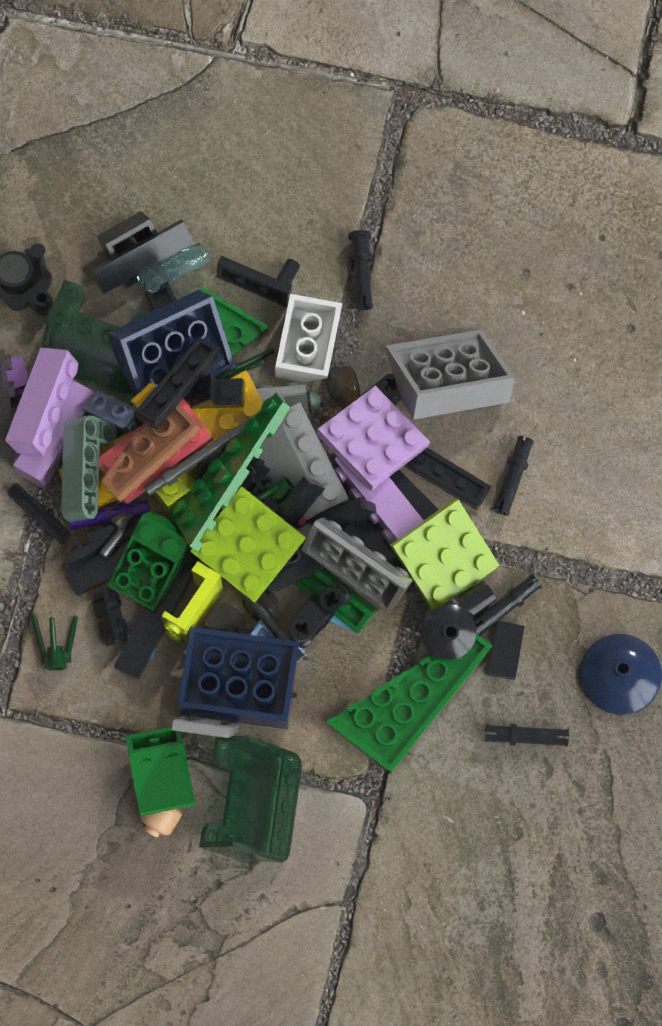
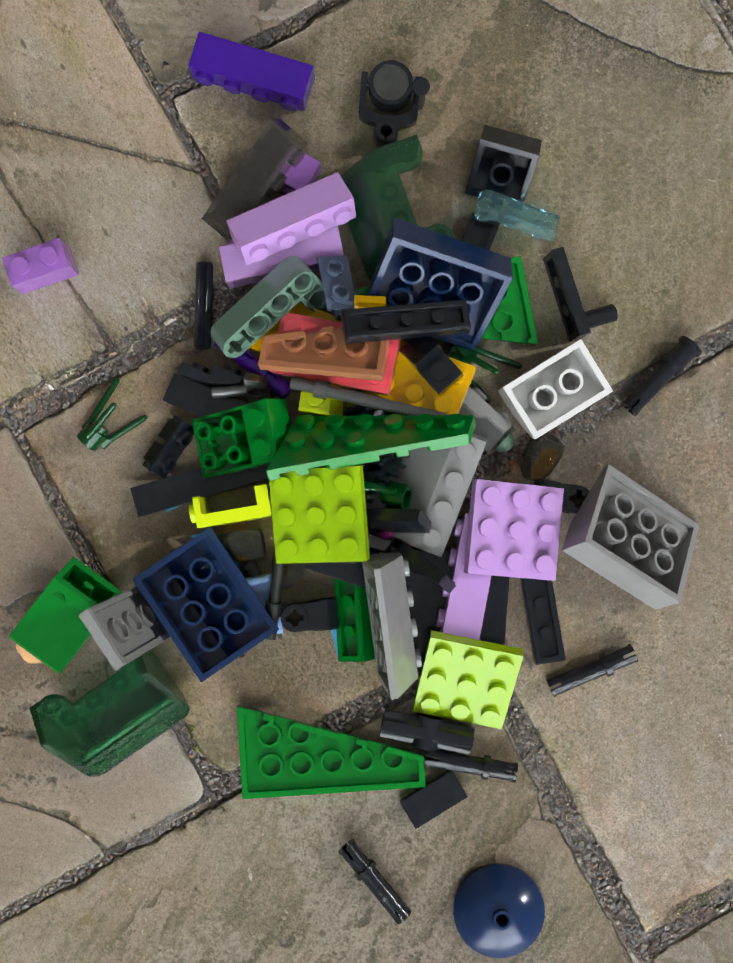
camera: 45 degrees right, 15 degrees up
(142, 256) = (501, 180): black tile -> none
(328, 601) = (346, 621): black bush -> none
(435, 635) = (406, 732): black dish -> none

